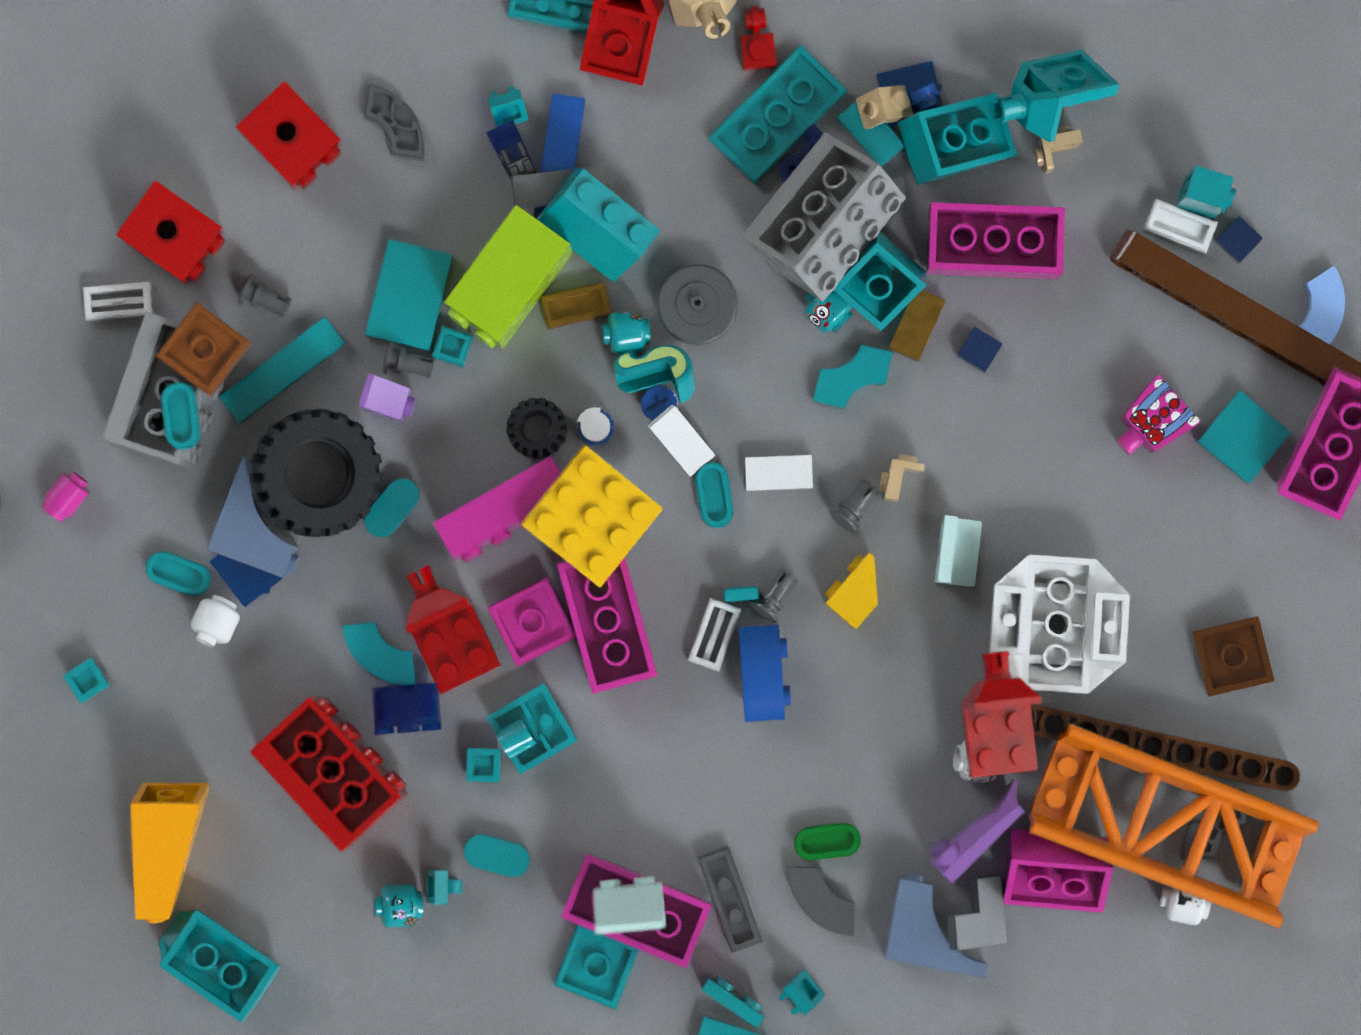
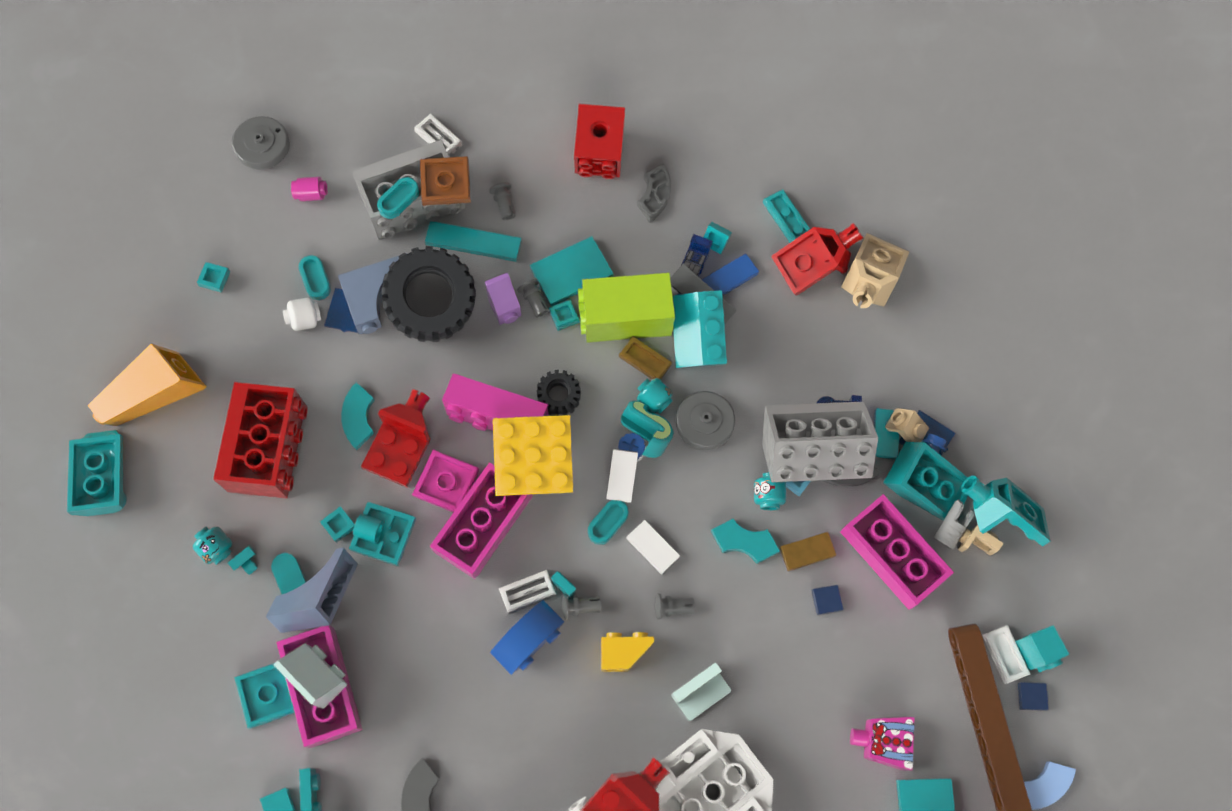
camera: 40 degrees right, 15 degrees down
(183, 253) = (495, 125): red brick -> none
(392, 507) = (446, 355): teal tile -> none
(406, 708) = (334, 451): clear blue brick -> none
(549, 847) = (317, 599): none -> sand blue arch
(595, 426) = (588, 424): white piece -> none
(730, 899) = (373, 740): dark grey tile -> none
(757, 49) = (871, 337): red plate -> none
(777, 115) = (846, 375): teal tile -> none
(827, 841) = (459, 768): green tile -> none
(881, 282) = (812, 506): teal slope -> none
(891, 482) = (706, 615): tan bracket -> none
(1023, 163) = (950, 530): none -> light grey hinge

